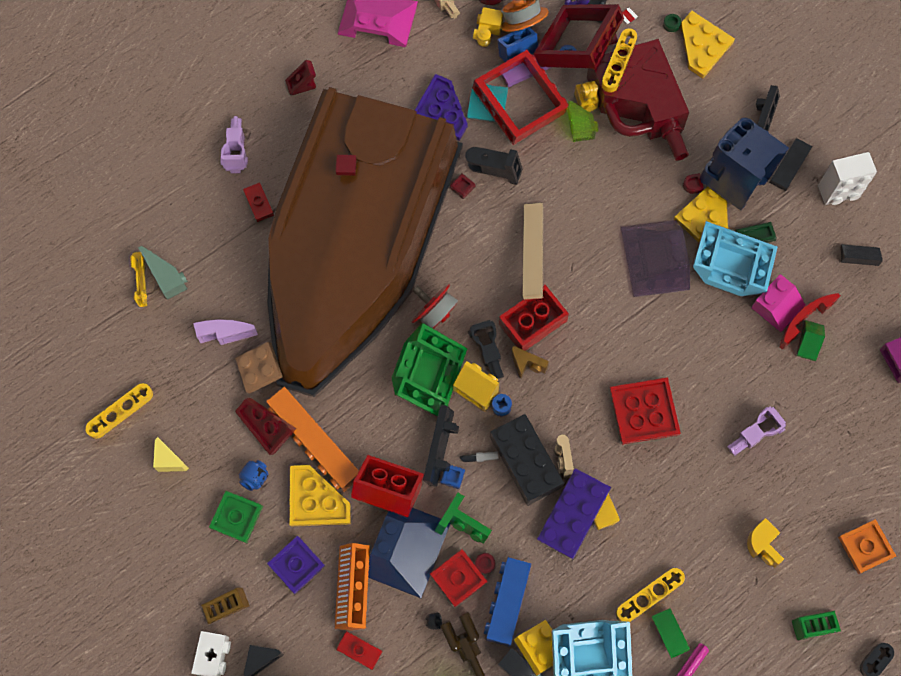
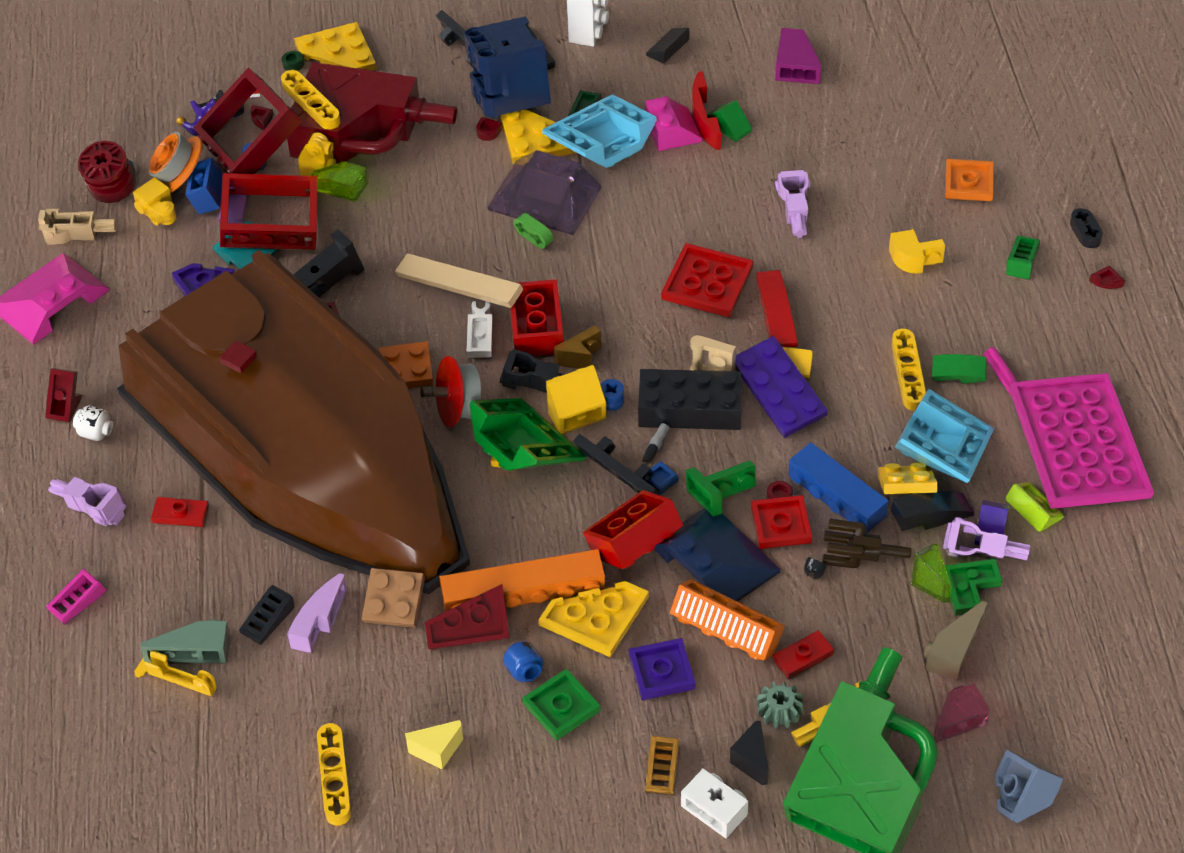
camera: 60 degrees left, 20 degrees down
(176, 190) = (69, 591): none -> dark pink slope
(220, 308) = (274, 599): none -> black slope
(291, 109) = (93, 423): none -> white head
(302, 664) = (780, 705): none -> sand green gear
(450, 260) = (410, 362): none -> orange plate
(502, 290) = (479, 332): none -> white plate
(615, 270) = (533, 230): none -> bright green beam
(645, 473) = (776, 307): none -> red slope

